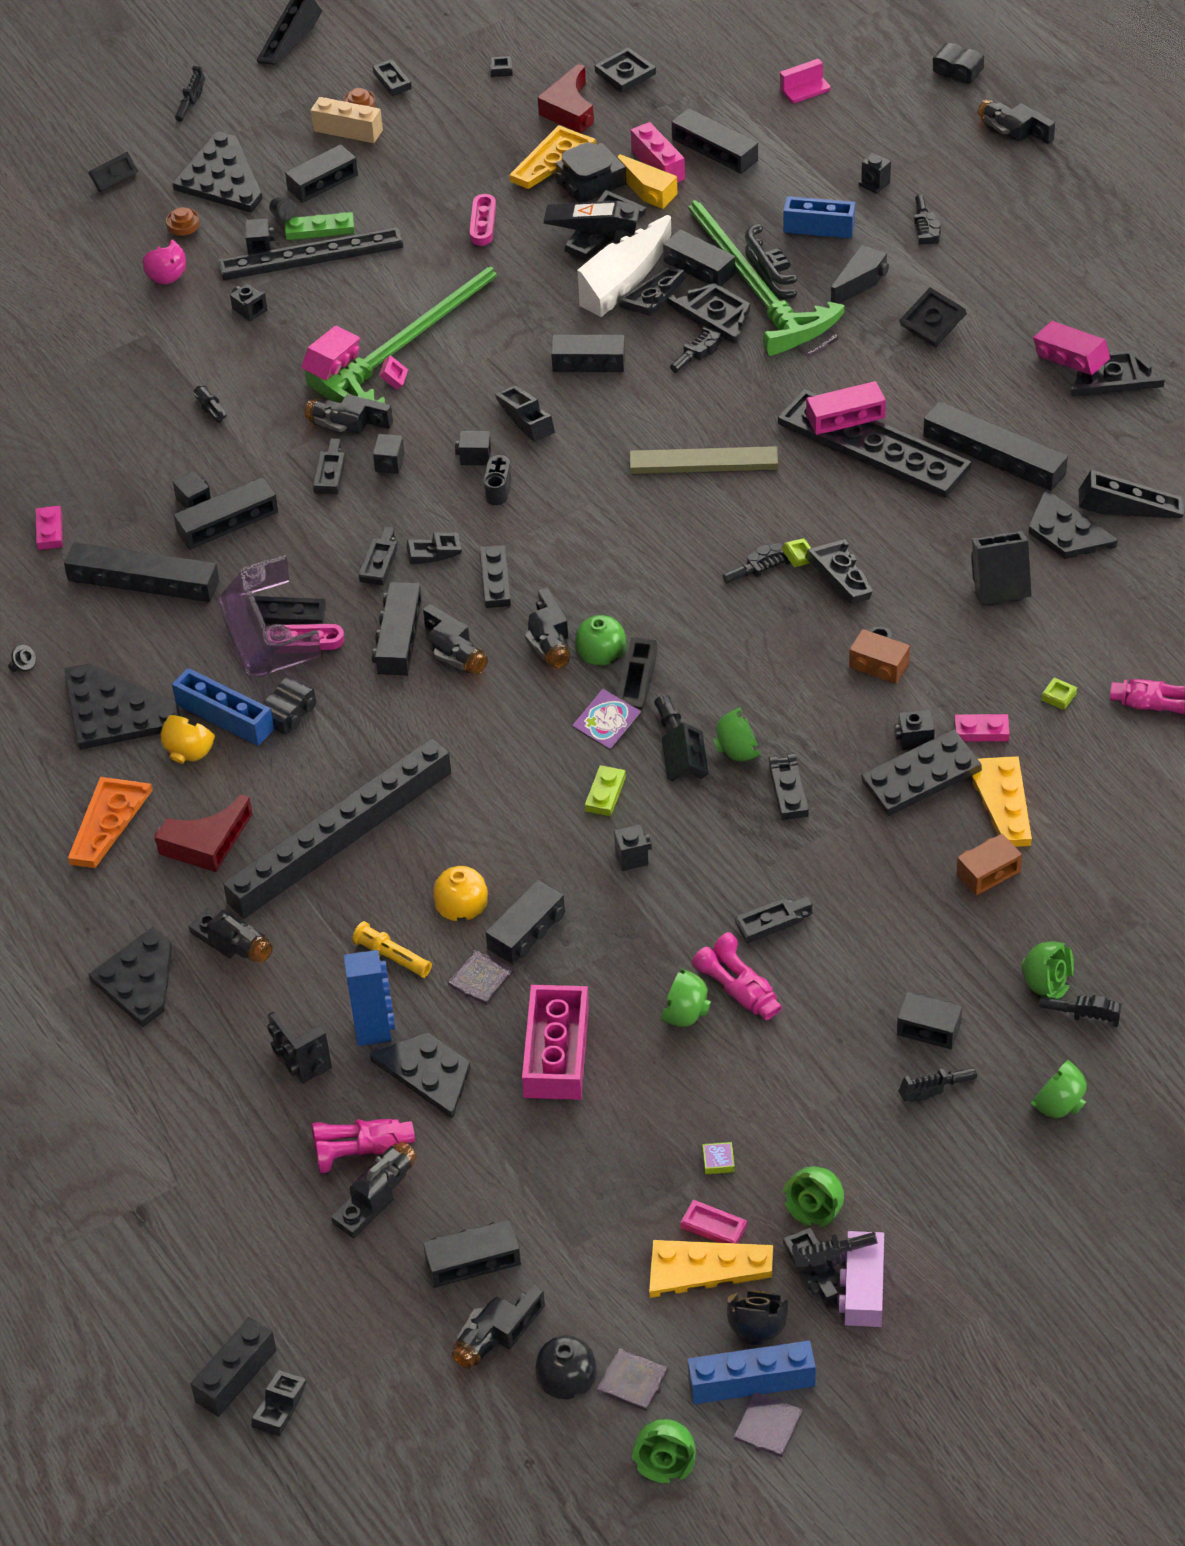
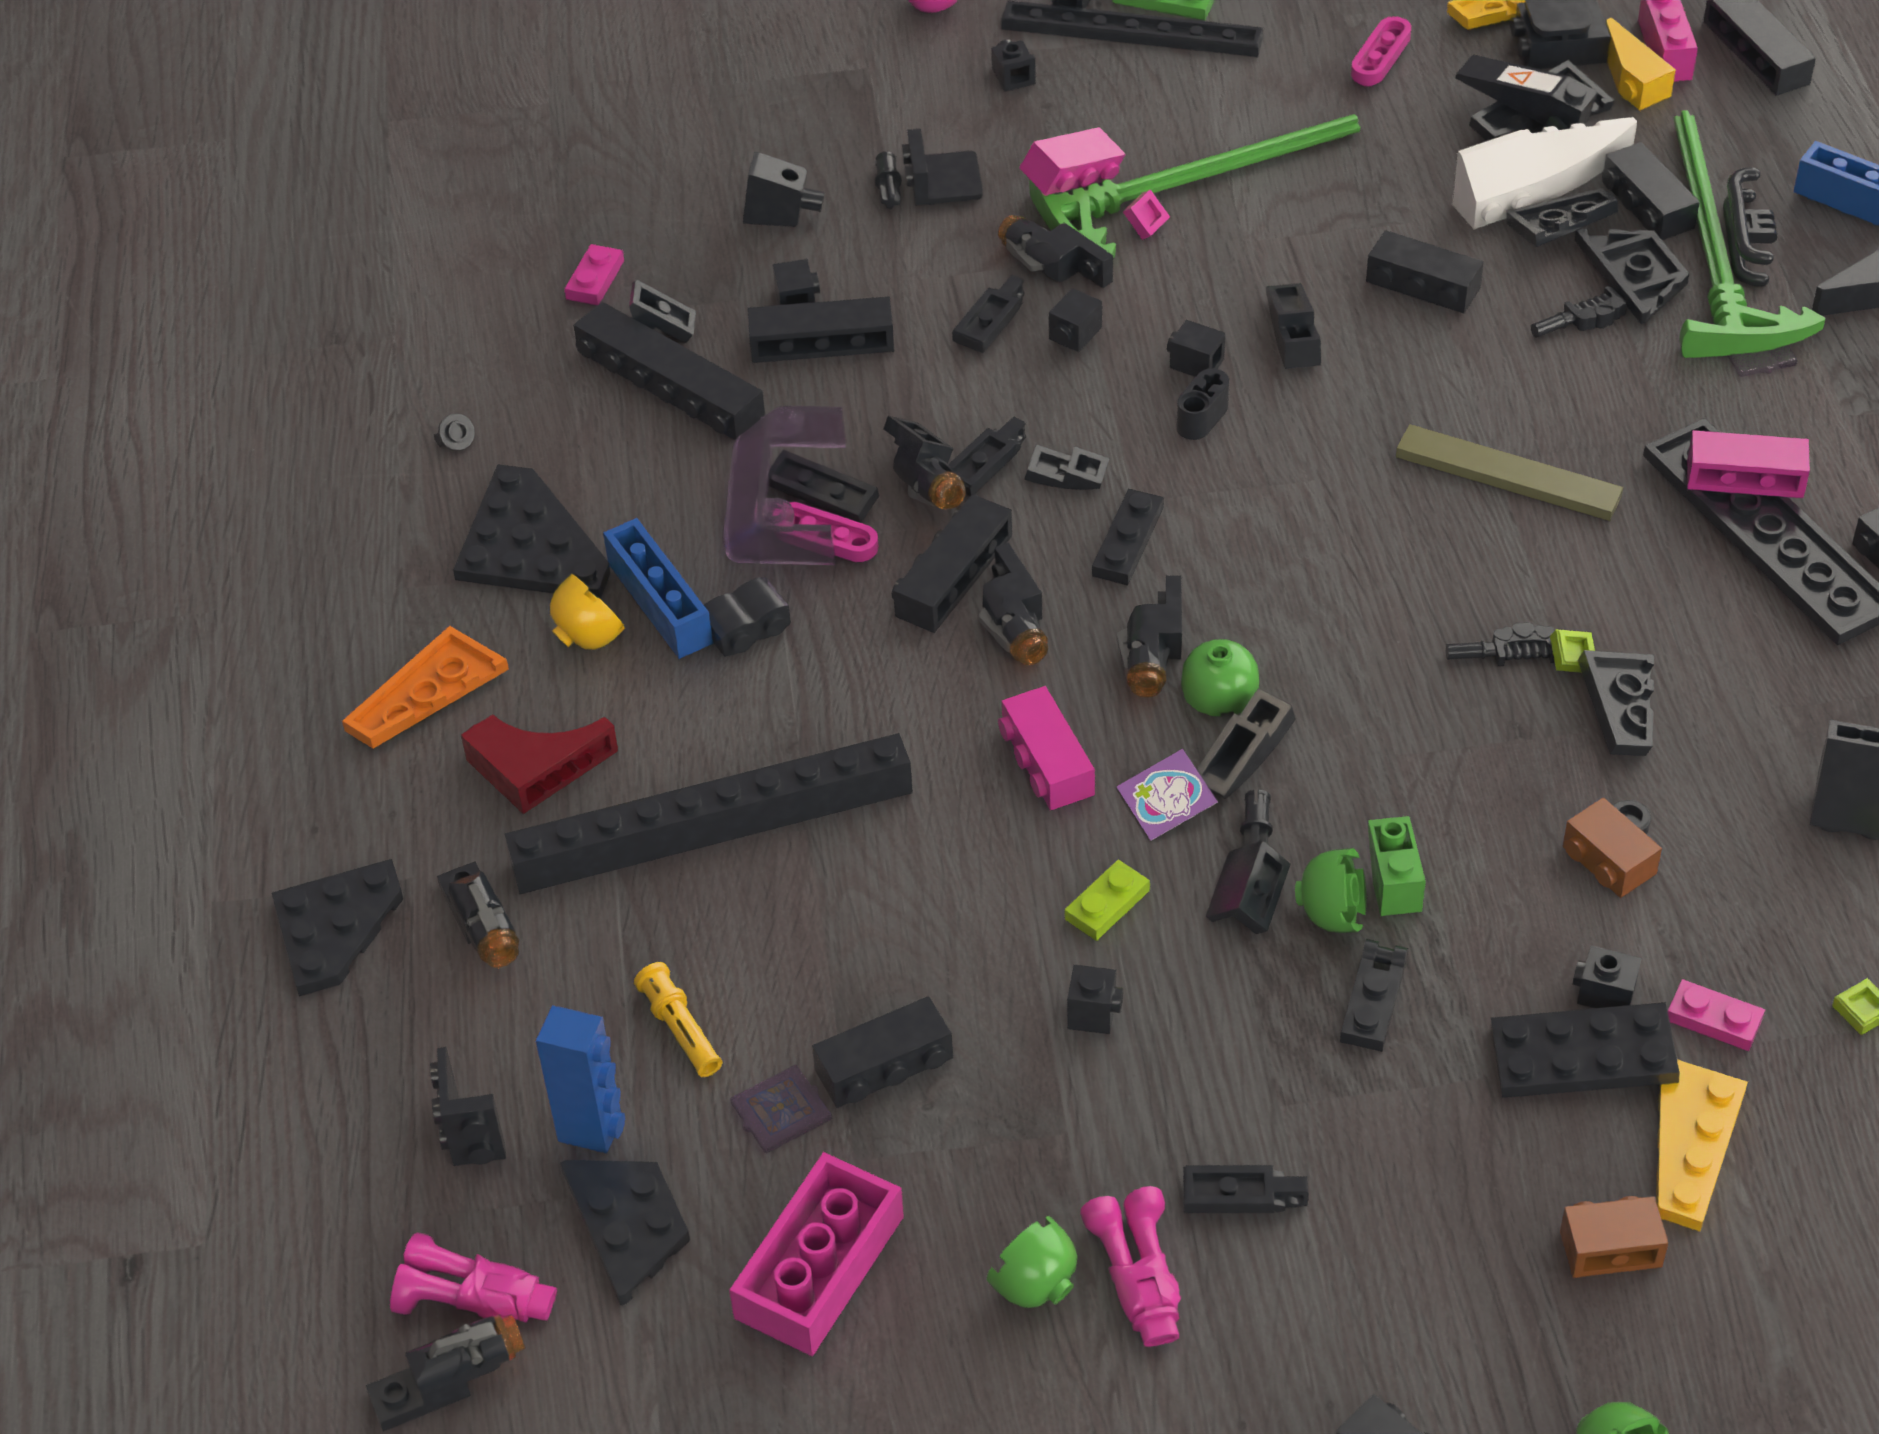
camera: 25 degrees right, 0 degrees up
(116, 536) = (661, 312): none -> black slope
(145, 435) = (778, 193): none -> black torso
(243, 389) = (941, 175): none -> black bracket
(346, 575) = (924, 464): none -> black plate
(460, 893) = (819, 973): yellow cylinder -> none
(521, 716) = (1047, 748): none -> dark pink brick
(764, 710) = (1396, 866): none -> bright green slope

